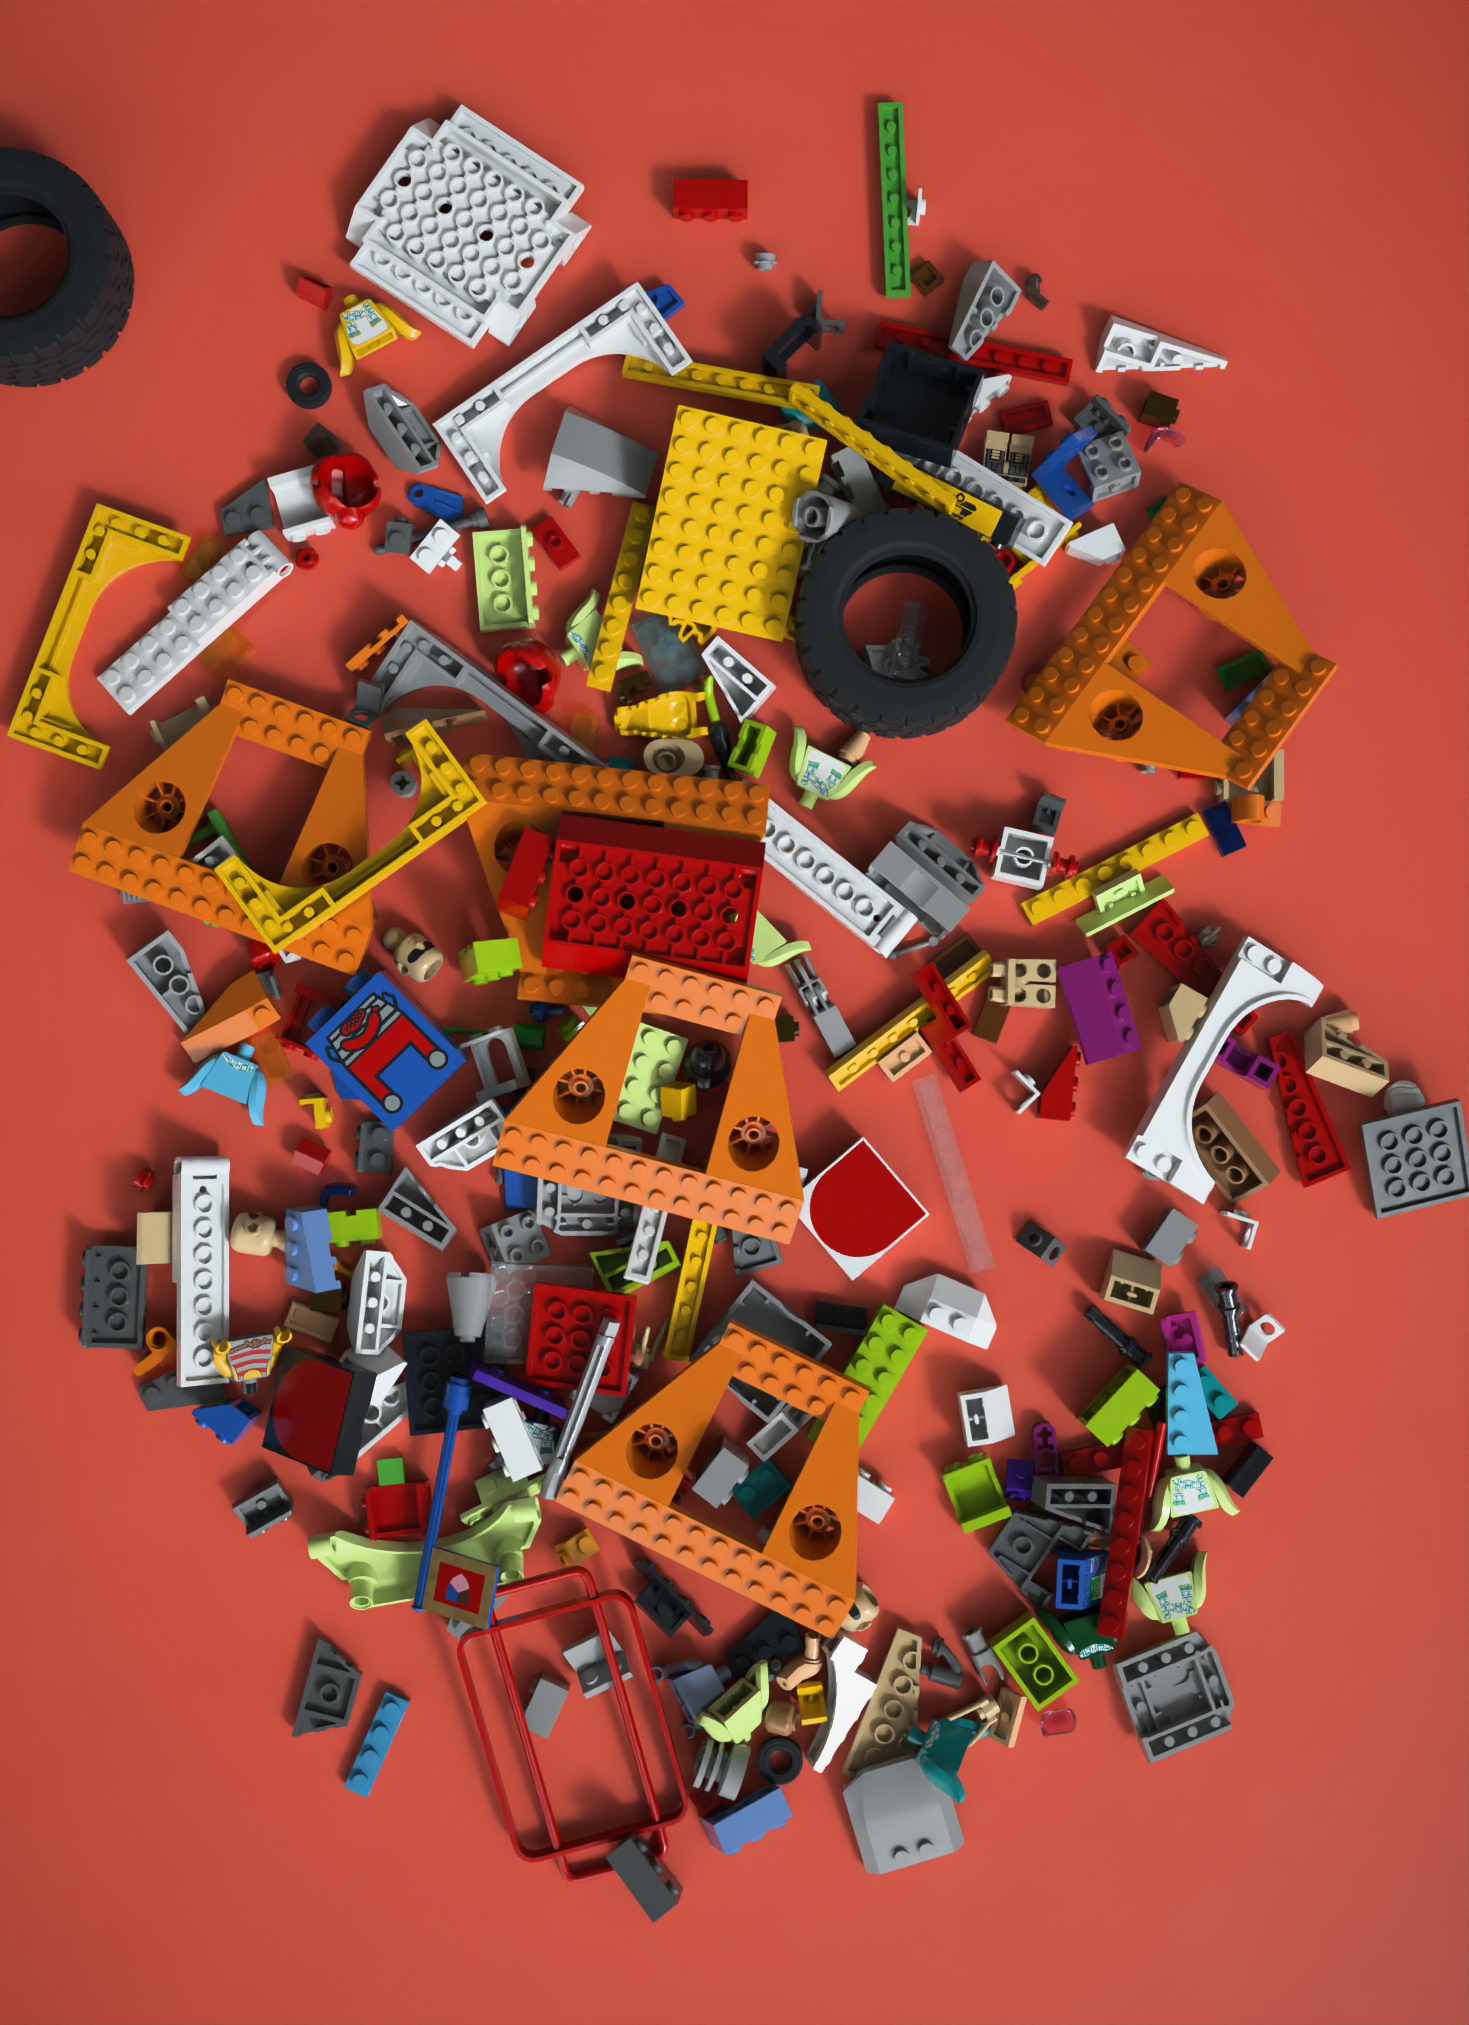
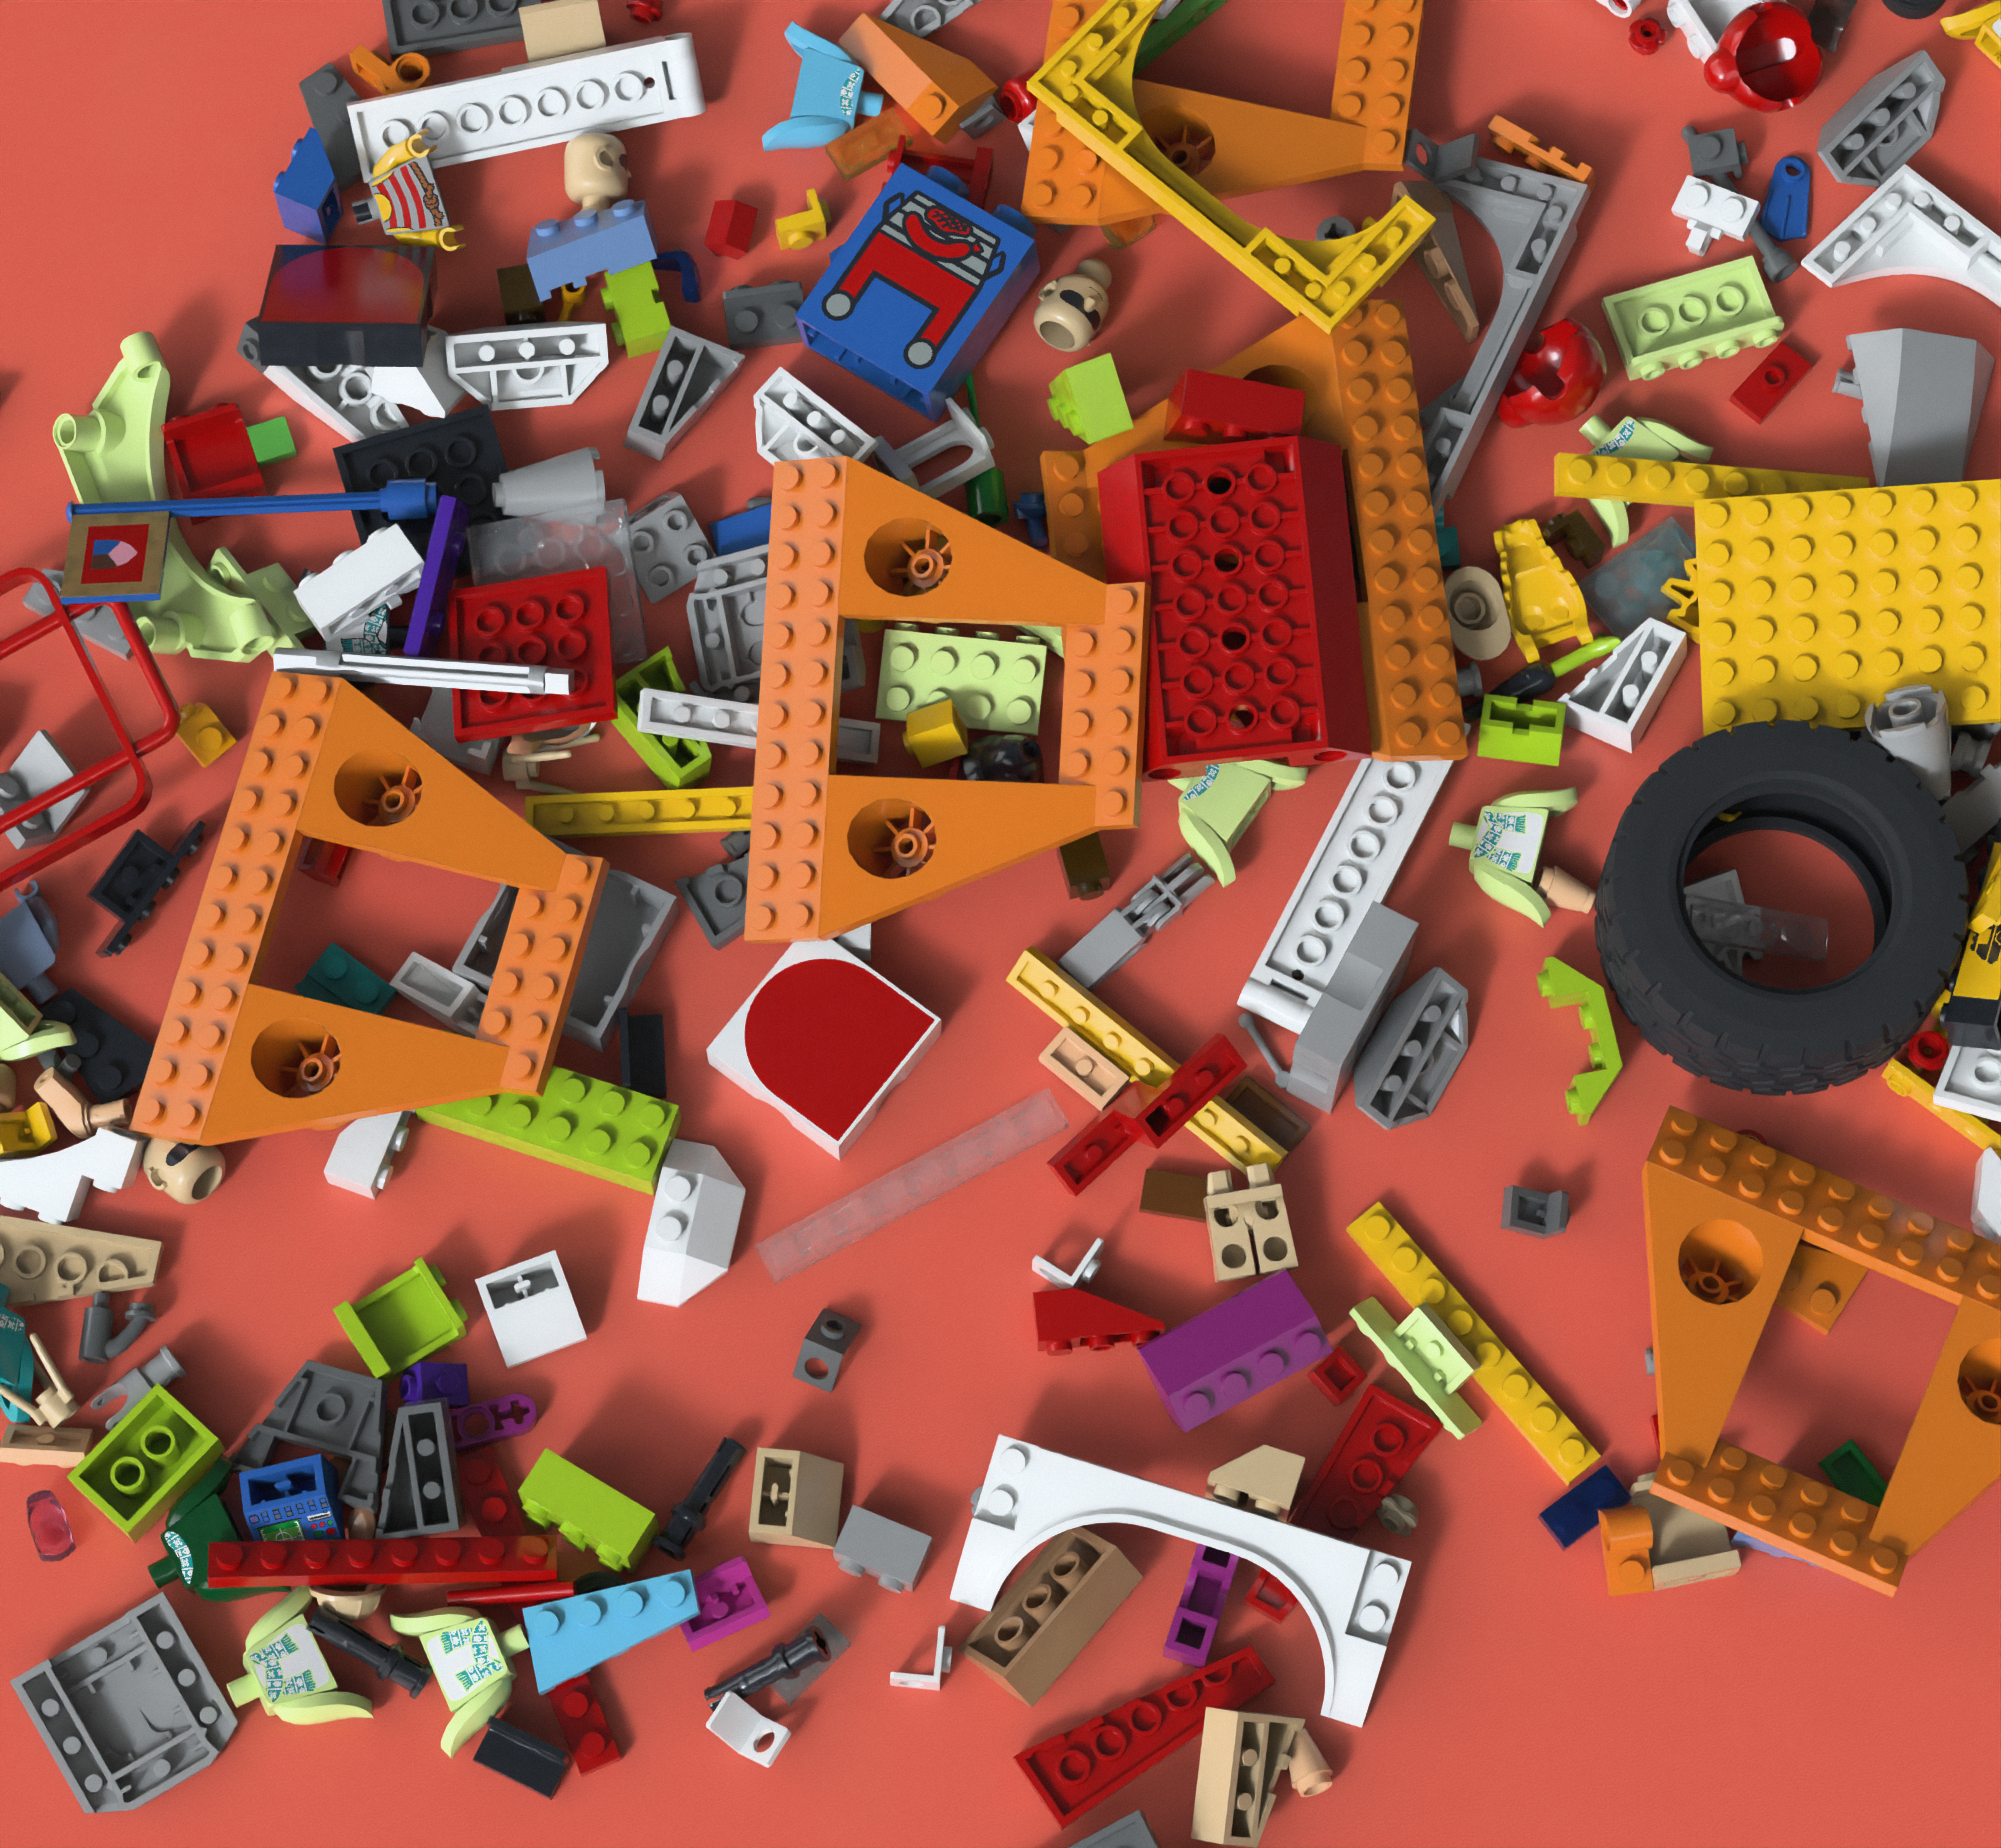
camera: 80 degrees right, 15 degrees down
(264, 1508) = (183, 271): dark grey bracket -> none
(313, 1323) = (478, 284): light nougat tile -> none
(585, 729) = (1485, 483): clear yellow plate -> none
(720, 1472) = (364, 906): light grey brick -> none
(982, 764) = (1569, 987): none -> lime slope
(1022, 858) = (1452, 1178): white brick -> none
(1216, 1396) = (638, 1676): teal plate -> none

